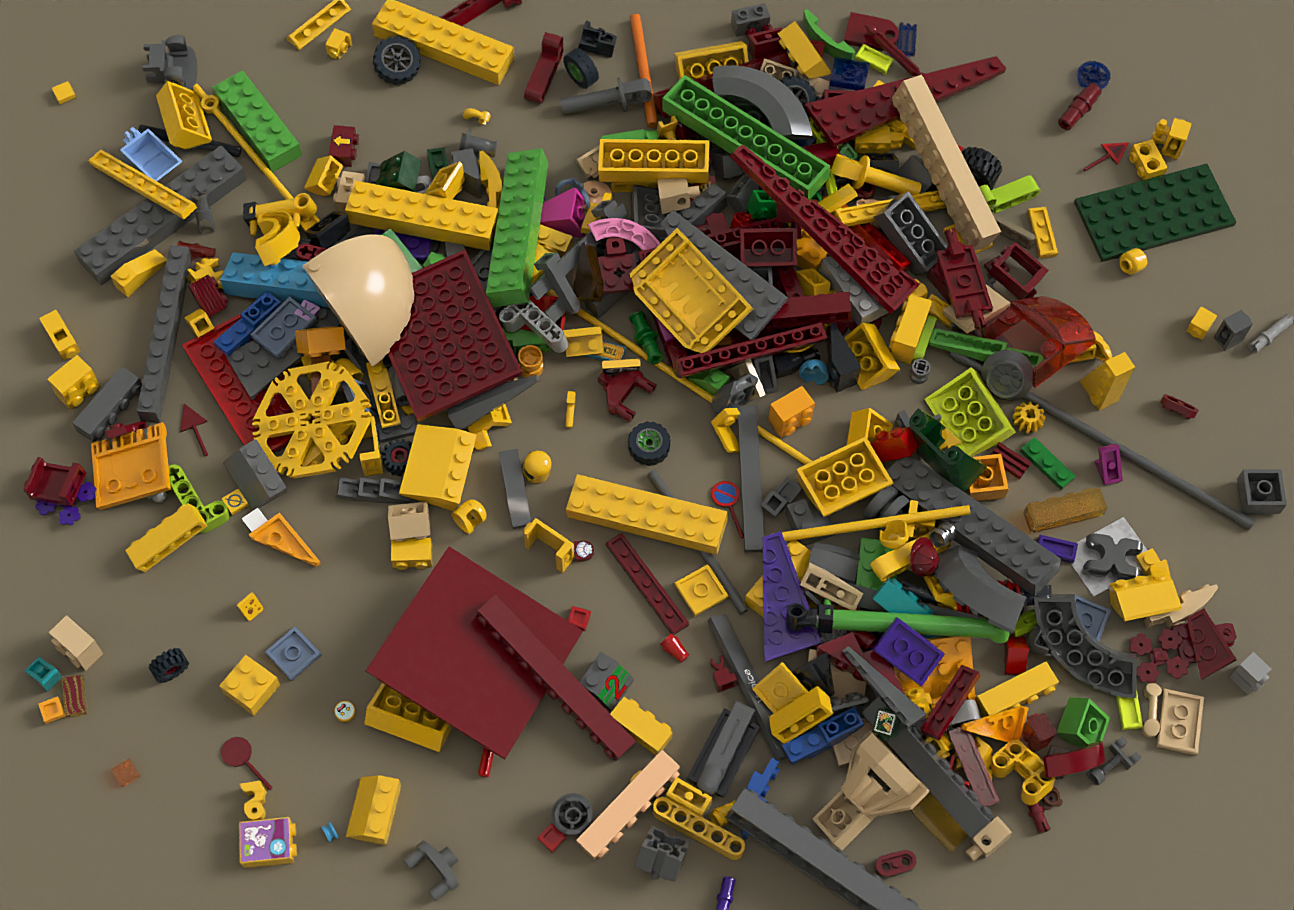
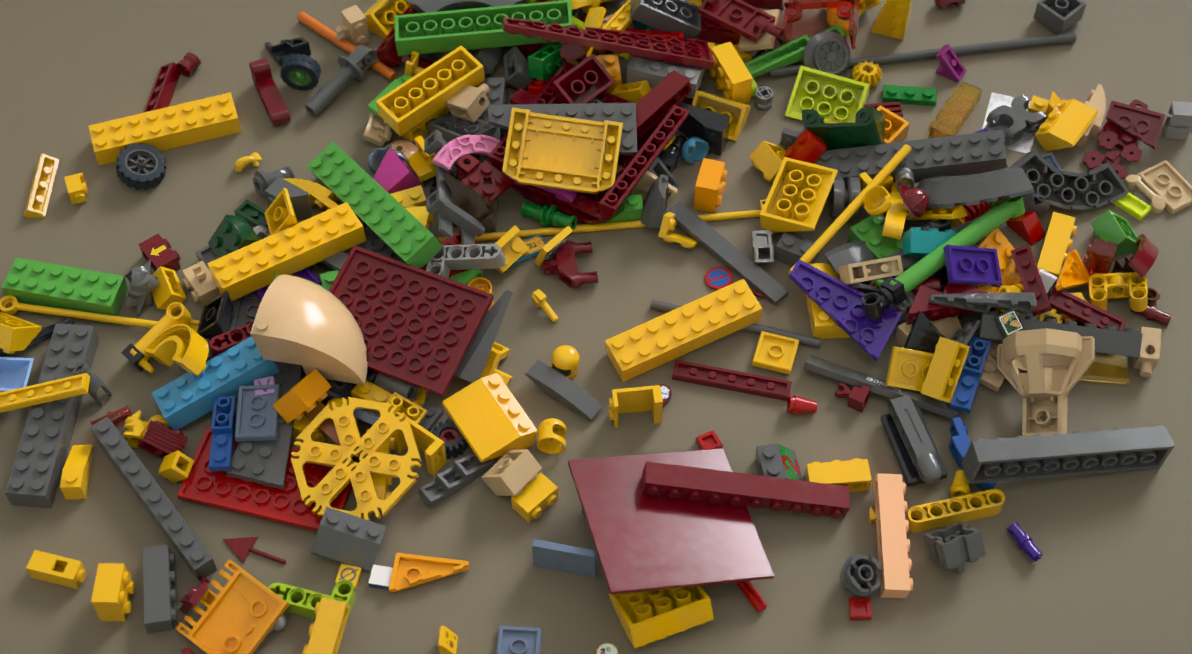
camera: 40 degrees left, 10 degrees down
(304, 161) = (141, 287): none -> dark grey hair
(377, 610) = (564, 558): none -> sand blue tile
(647, 433) = (628, 285): black wheel -> none
(659, 58) = (353, 27): none -> tan brick
(689, 797) = (927, 492): yellow brick -> none
(895, 865) = (1105, 422): dark red plate -> none
(1097, 775) = (1168, 235): dark grey bar -> none

